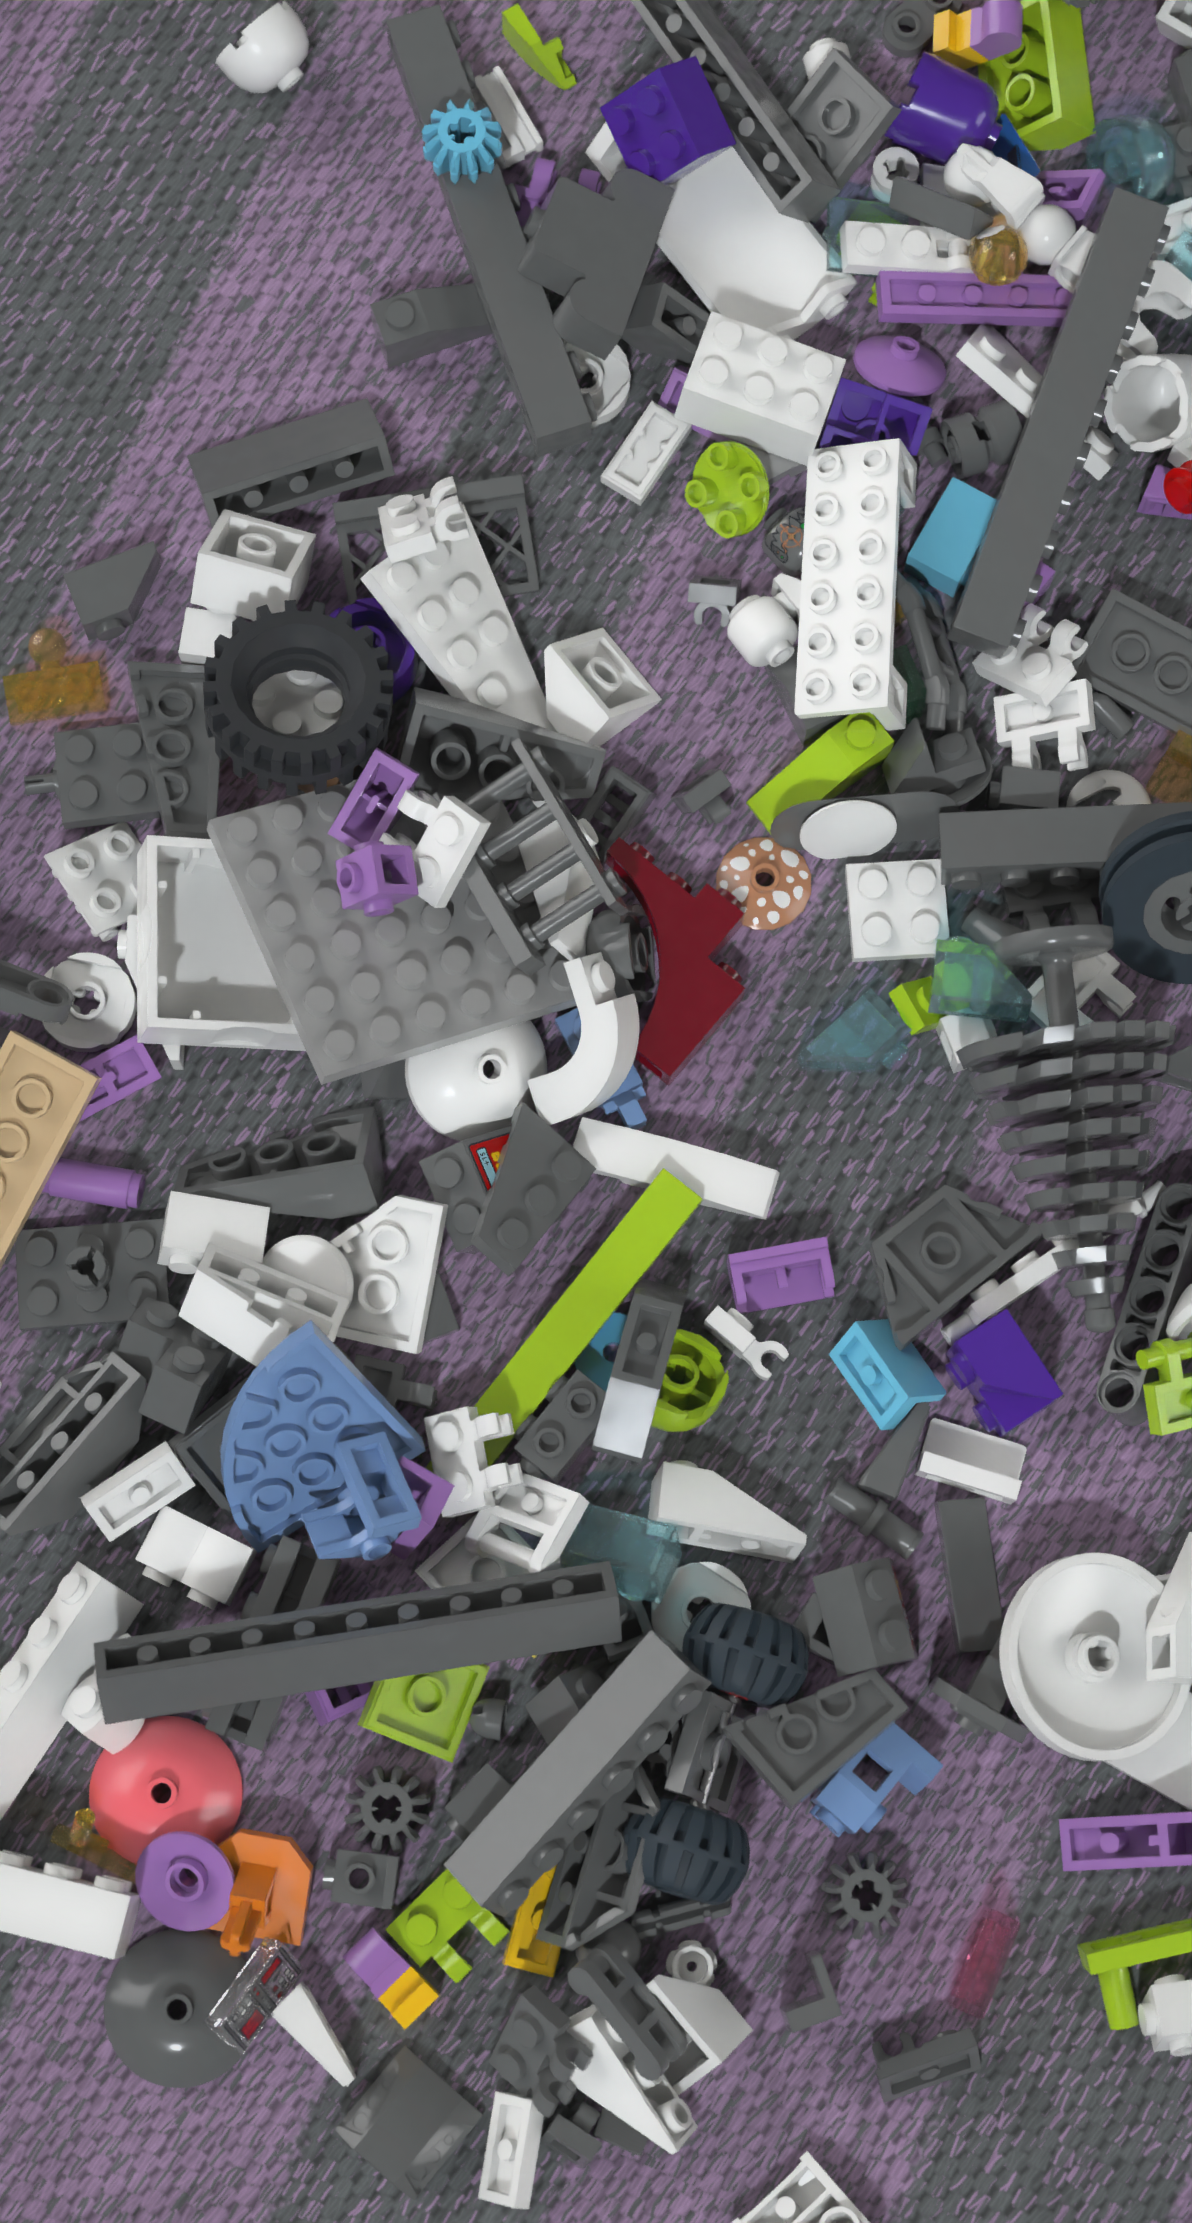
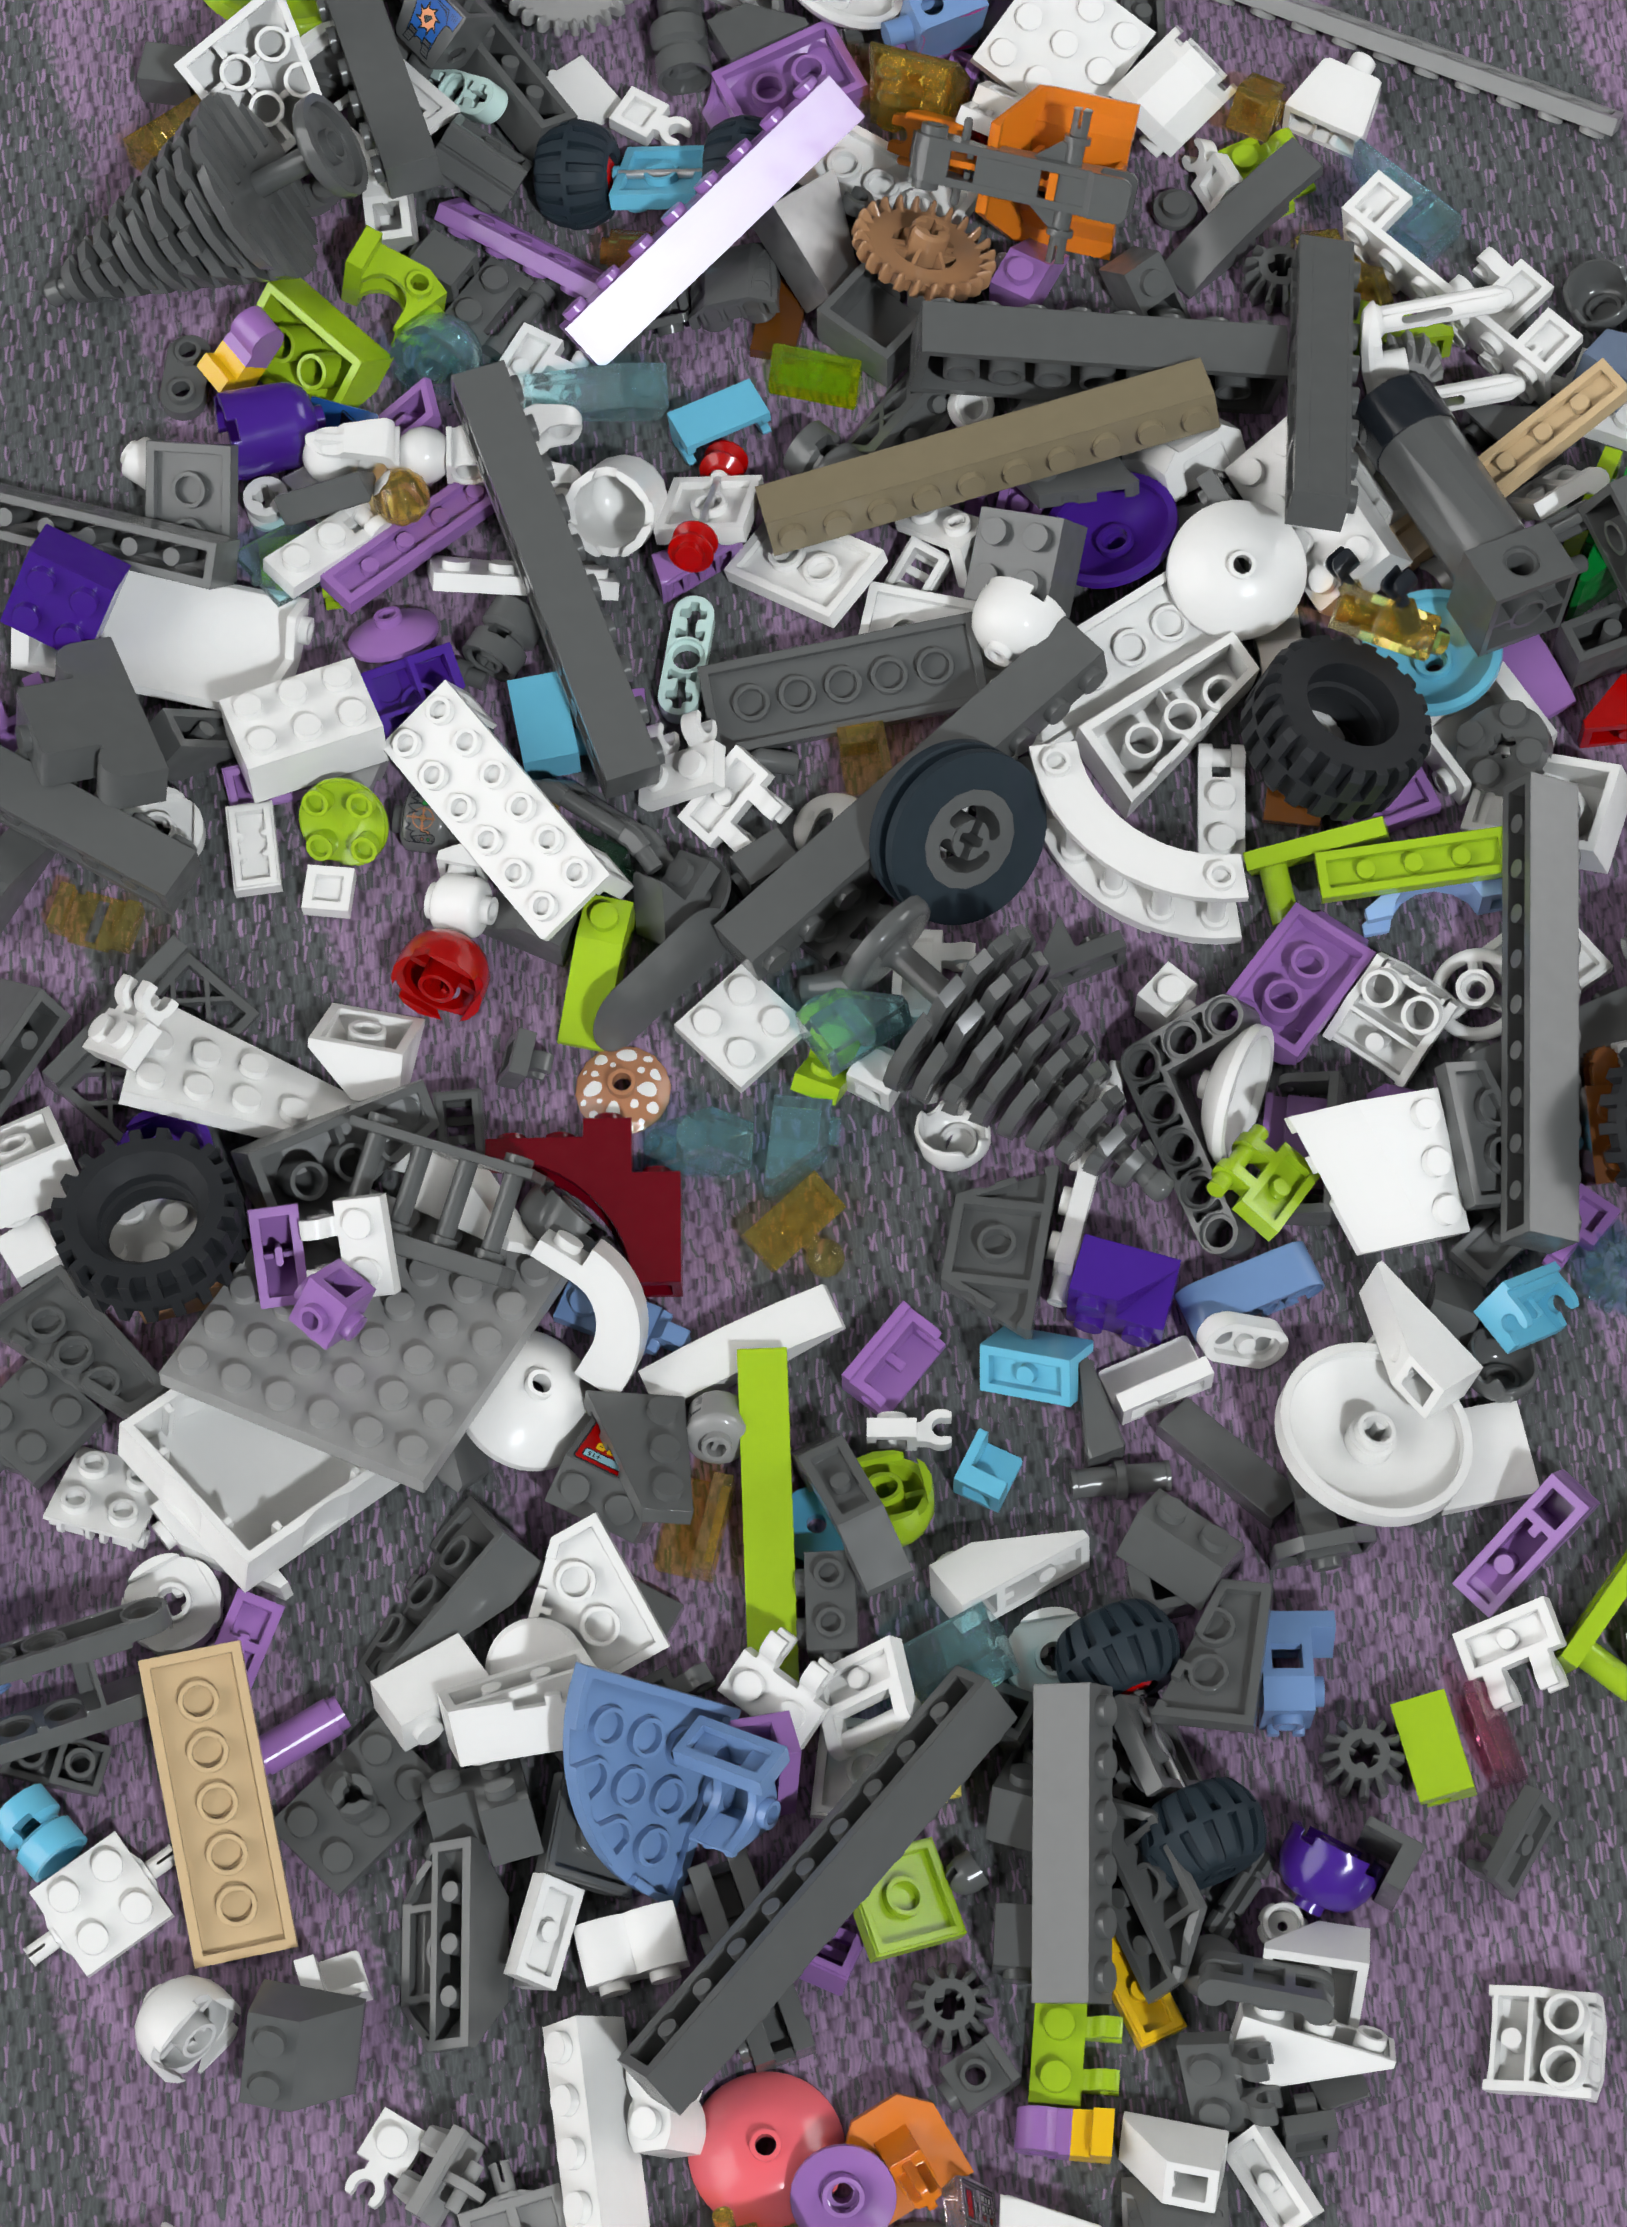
camera: 35 degrees left, 10 degrees down
(452, 2073) = (1175, 2159): none -> white slope
(468, 392) = (73, 914): none -> clear yellow piece
(538, 1274) = (695, 1548): none -> clear yellow panel
(598, 1211) = (715, 1427): none -> light grey head
(673, 535) = (329, 891): none -> white plate
(698, 666) = (434, 968): none -> red cylinder
(716, 593) = (398, 907): tile -> none
(759, 1957) = (1325, 1871): none -> dark purple cylinder
(777, 1424) = (986, 1473): none -> medium azure panel
(781, 978) = (701, 1144): none -> clear light blue slope
(800, 1103) = (796, 1224): none -> clear yellow plate
(848, 829) = (655, 995): white piece -> none
(926, 1935) = (1433, 1749): none -> lime hinge
(983, 1153) = (967, 1144): none -> white hair
(1060, 1906) = (1509, 1641): none -> white plate
(1062, 1491) = (1242, 1339): none -> white plate
(1107, 1454) = (1253, 1286): none -> medium blue beam
(1114, 554) = (679, 642): none -> light aqua beam
(1146, 48) = (381, 270): none -> lime tile

